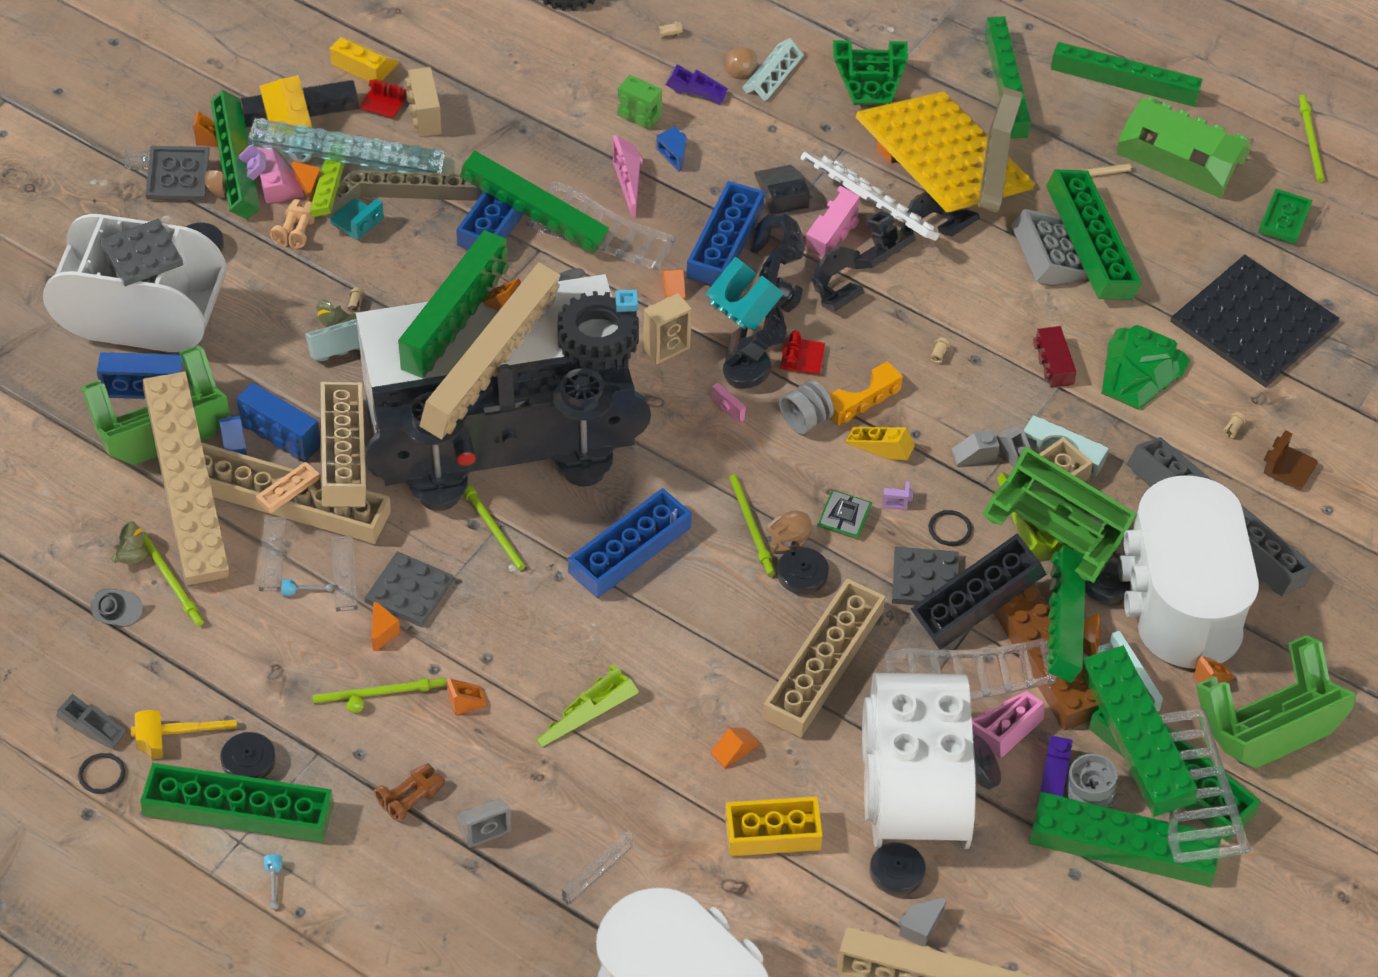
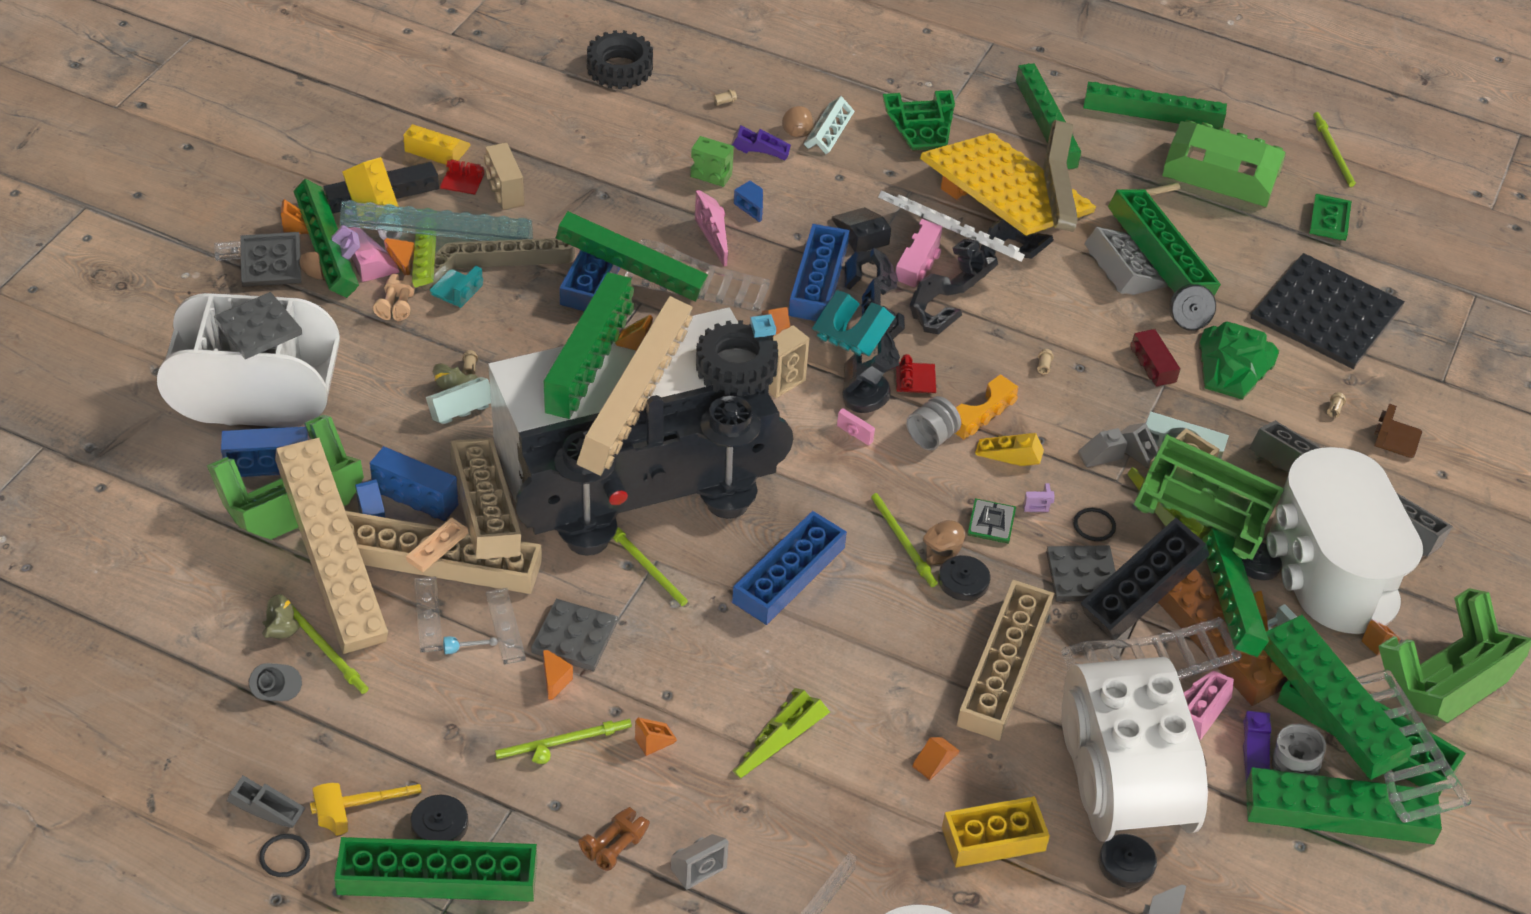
camera: 10 degrees left, 5 degrees down
(1106, 305) = (1192, 306): none -> wheel

